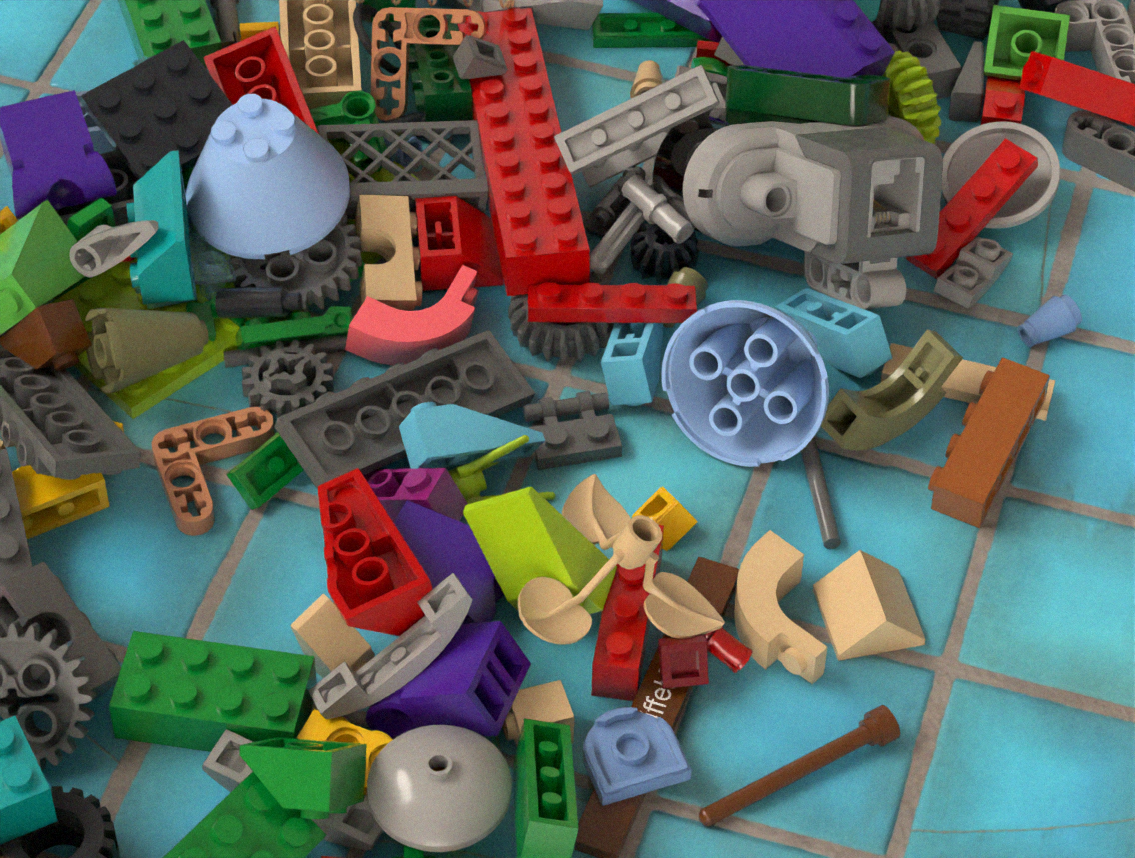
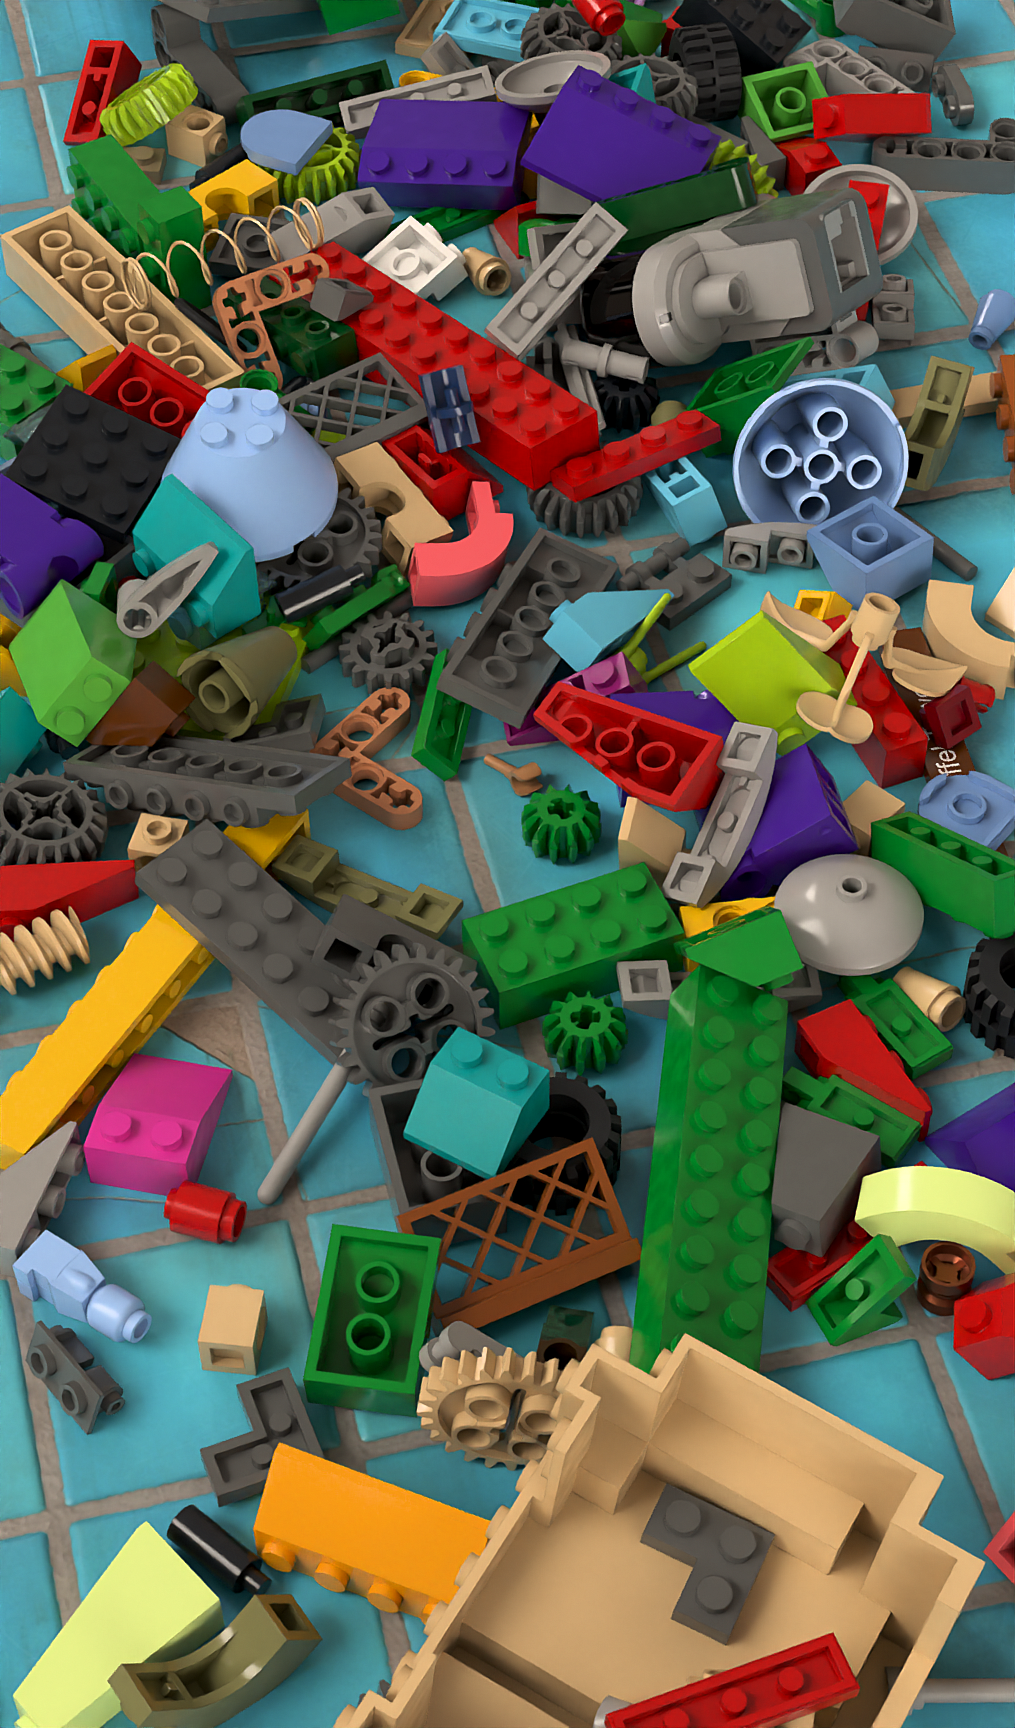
camera: 30 degrees left, 0 degrees up
(98, 568) = (321, 878): none -> olive slope
(154, 408) = (292, 726): none -> dark grey plate
(163, 775) = (585, 1032): none -> green gear
(291, 588) = (561, 824): none -> green gear
(307, 538) = (521, 779): none -> medium nougat hand
(473, 193) = (449, 408): none -> dark blue hips
(589, 56) = (419, 260): none -> white plate
(667, 431) = (756, 544): none -> light grey slope
(744, 484) = (872, 552): none -> medium blue slope
(758, 281) = (742, 387): none -> green slope

